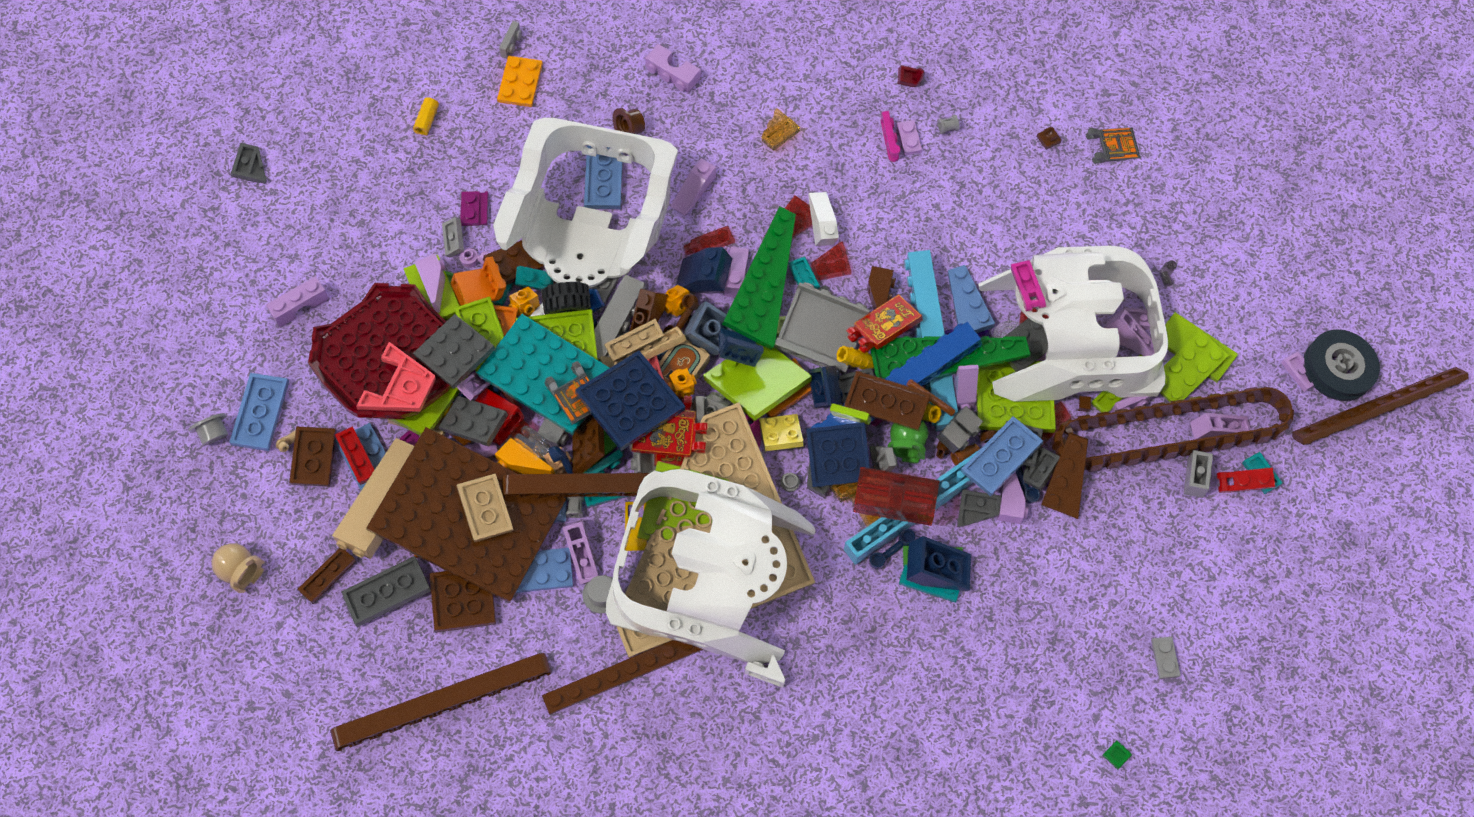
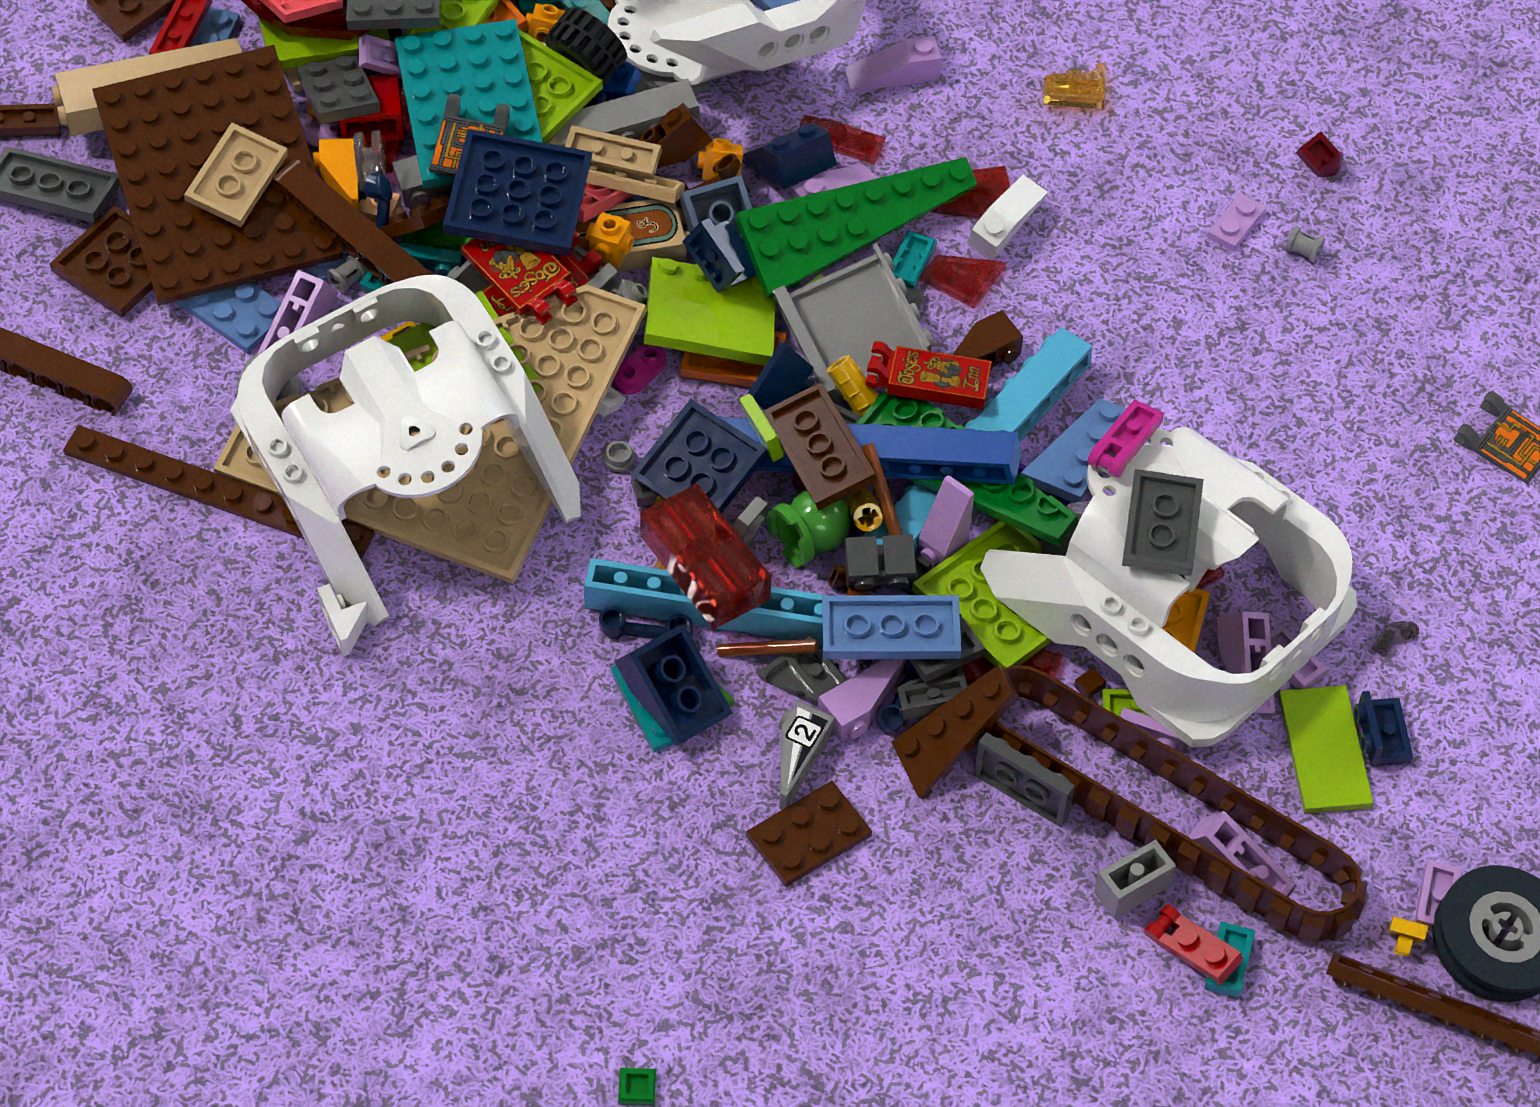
camera: 45 degrees right, 10 degrees down
(781, 432) = (667, 390): light yellow plate -> none
(890, 138) = (1209, 198): dark pink plate -> none
(952, 510) = (768, 648): none -> dark orange bar
(1012, 542) = (802, 741): none -> light grey slope
(1049, 138) = (1426, 363): reddish brown tile -> none
(1055, 577) = (809, 833): none -> reddish brown plate
(1085, 311) = (1162, 522): none -> dark grey plate
(1115, 472) = (1024, 779): none -> dark grey plate
(1165, 658) = (834, 1043): light grey plate -> none
(1191, 366) = (1284, 759): lime plate -> none
(1209, 318) = (1383, 730): none -> dark blue bracket
(1309, 399) = (1407, 934): none -> yellow tile

